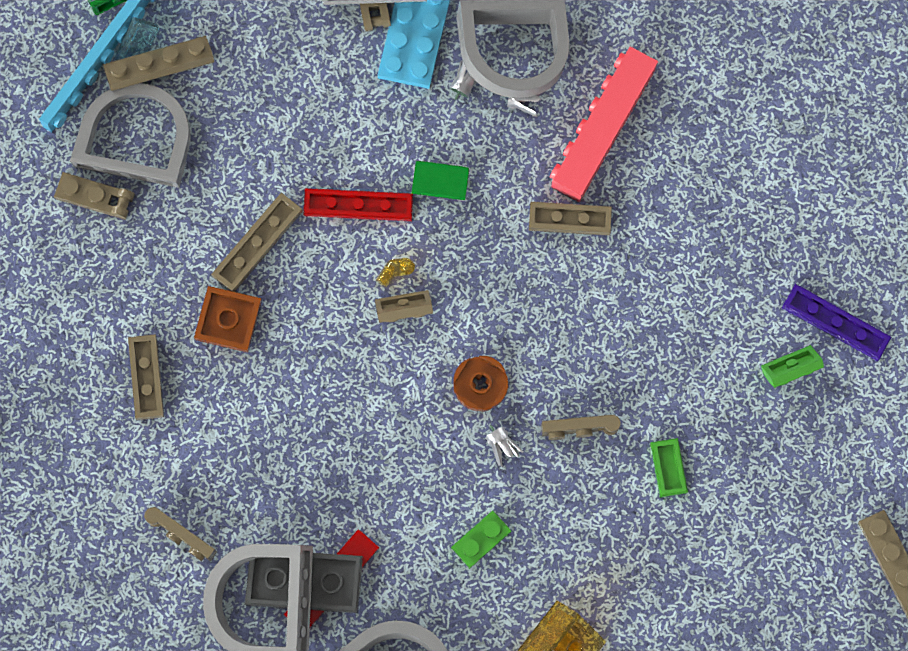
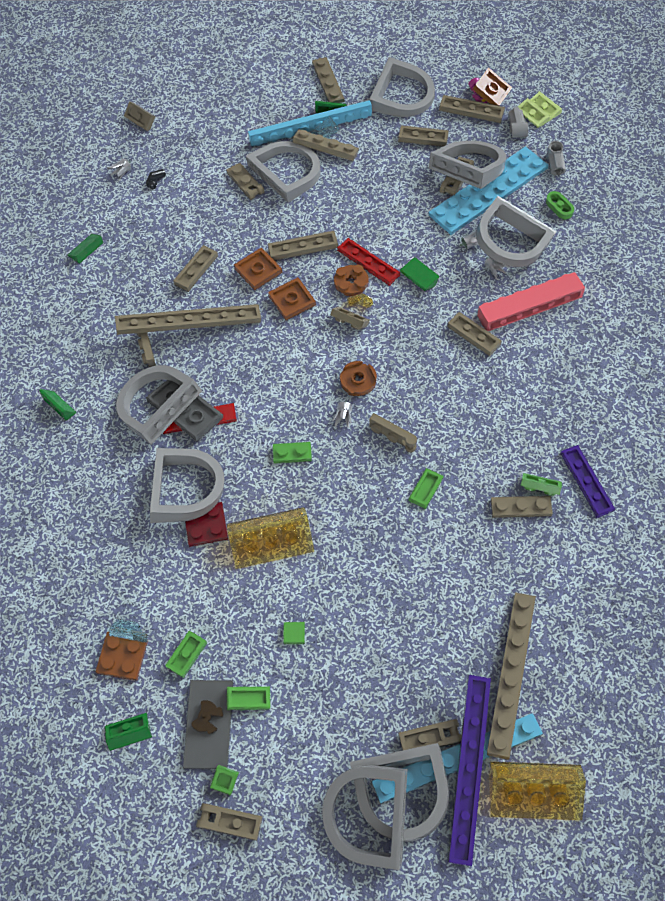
camera: 45 degrees right, 15 degrees down
(208, 463) = (187, 319): none -> dark tan plate
(308, 331) = (292, 298): none -> dark orange plate
(359, 263) = (351, 271): none -> dark orange plate
(789, 410) = (521, 506): none -> dark tan plate

